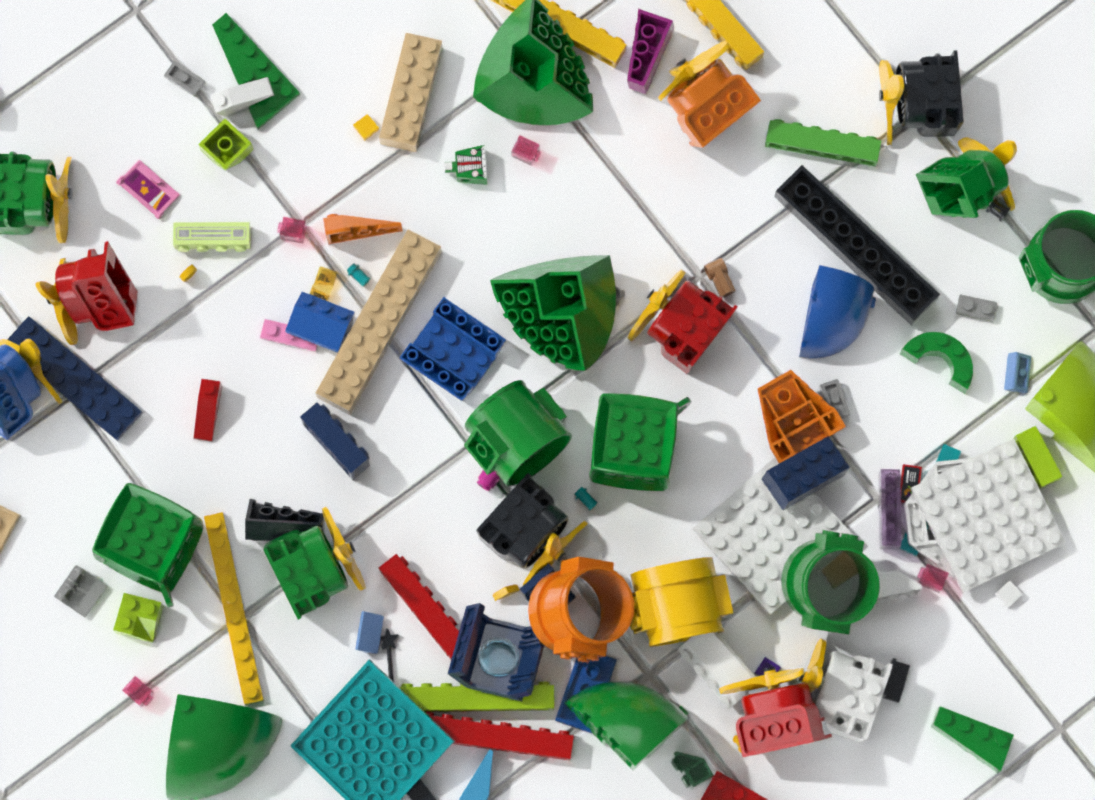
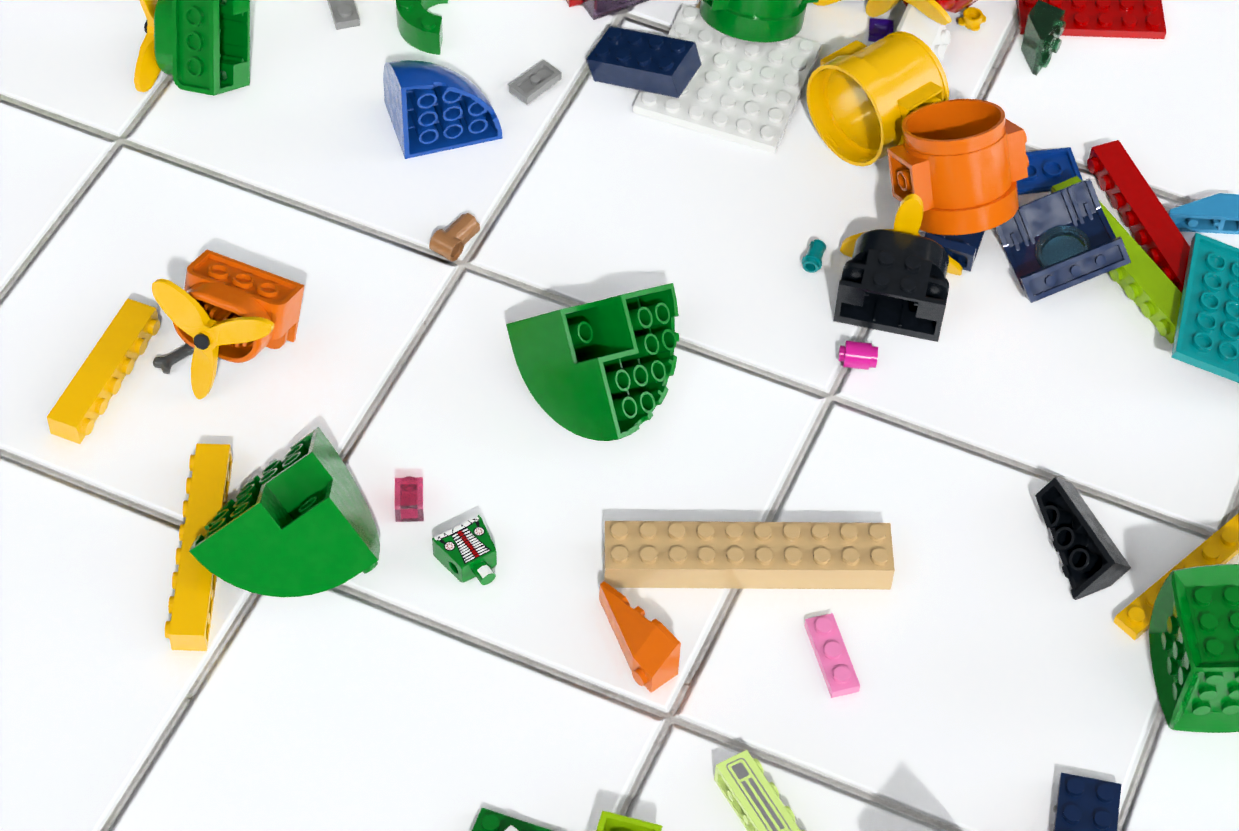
camera: 120 degrees left, 25 degrees down
(188, 273) = (834, 816): yellow tile -> none
(207, 409) = (996, 698): red slope -> none
(292, 230) = (688, 715): clear pink brick -> none
(310, 567) = (1114, 461): green brick -> none
(320, 322) = (796, 616): blue slope -> none
(324, 283) = (746, 648): clear yellow slope -> none
(335, 441) = (936, 523): dark blue brick -> none
(358, 274) = (696, 619): teal pin -> none
(366, 127) = (484, 703): yellow tile -> none
(369, 632) = (1133, 390): medium blue slope -> none
(388, 642) = (1127, 374): black piece -> none
(410, 92) = (403, 665): tan brick -> none
(421, 603) = (1060, 353): red brick -> none
(454, 350) = (730, 461): blue slope -> none
(505, 592) = (982, 282): yellow tile -> none
(516, 432) = (797, 319): green cylinder -> none
(628, 718) = (1041, 81): green brick -> none
(634, 441) = (724, 206): green piece -> none
(648, 48) = (180, 422): magenta wedge -> none
(686, 321) = (537, 232): red brick -> none
(795, 415) = (581, 97): orange wedge -> none
(822, 142) = (217, 201): bright green brick -> none
(856, 245) = (332, 127): black brick -> none
(925, 95) = (101, 124): black brick -> none

